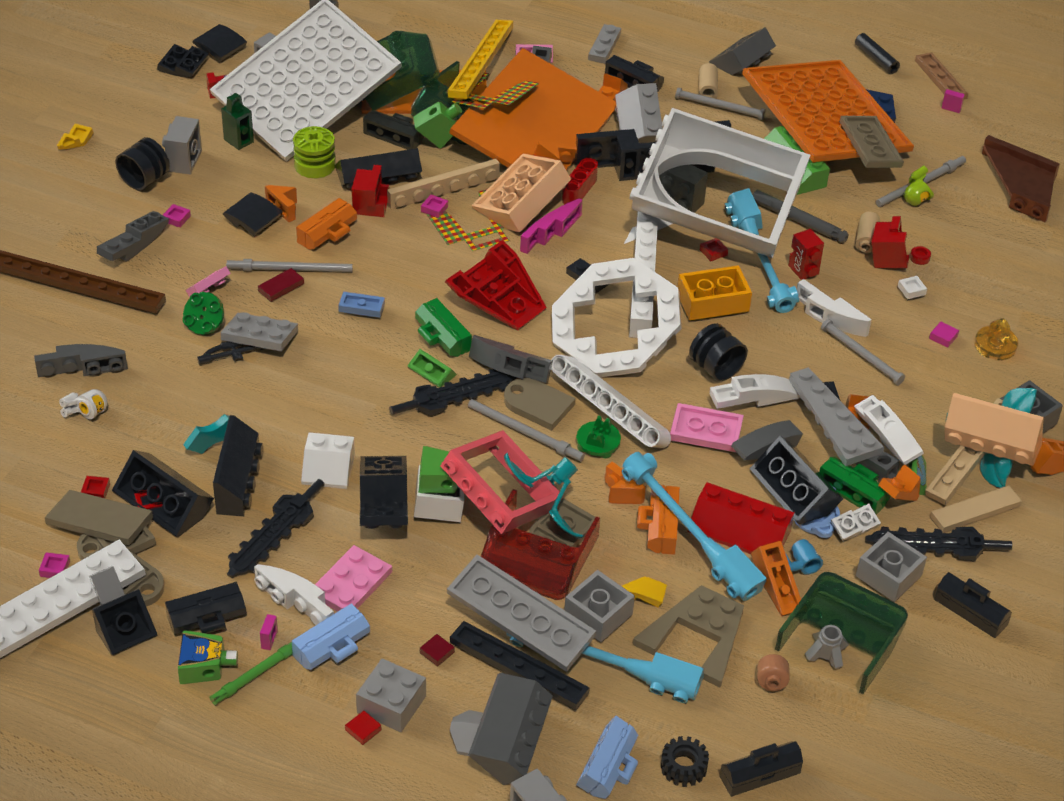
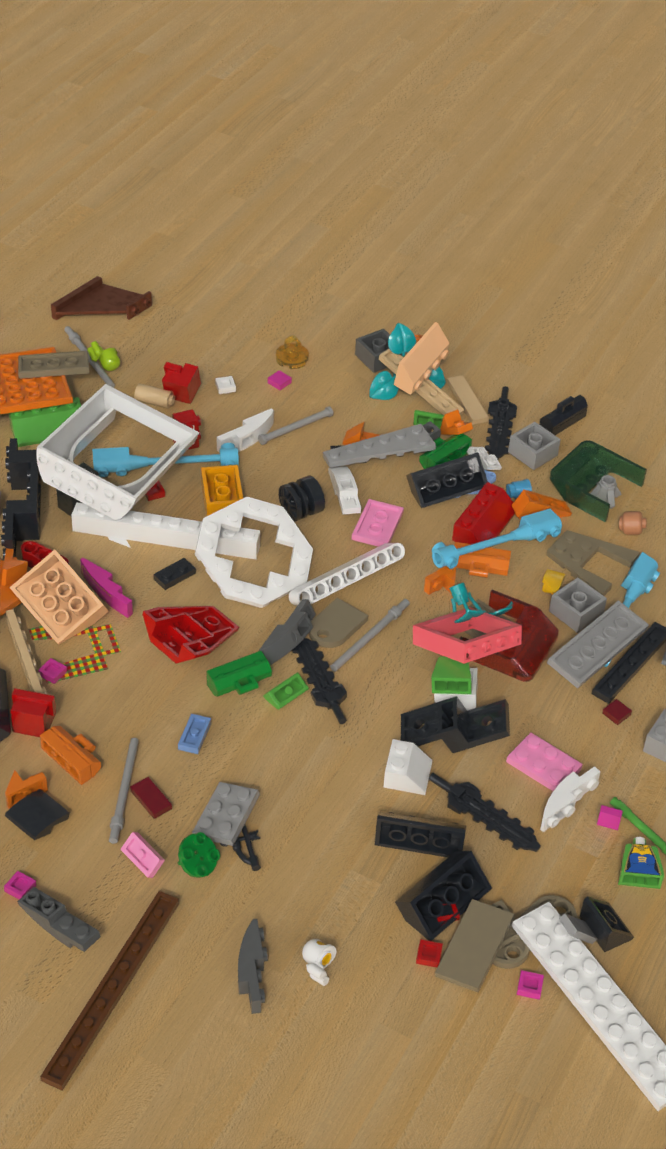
camera: 85 degrees left, 0 degrees up
(205, 609) = (585, 862): black piece -> none
(206, 436) = (372, 851): teal tile -> none
(329, 637) = (615, 776): light blue piece -> none
(598, 438) = (384, 590): green plate -> none
(757, 442) = (399, 489): dark grey slope -> none
(802, 217) = (113, 437): dark grey piece -> none
(889, 428) = (401, 416): white slope -> none

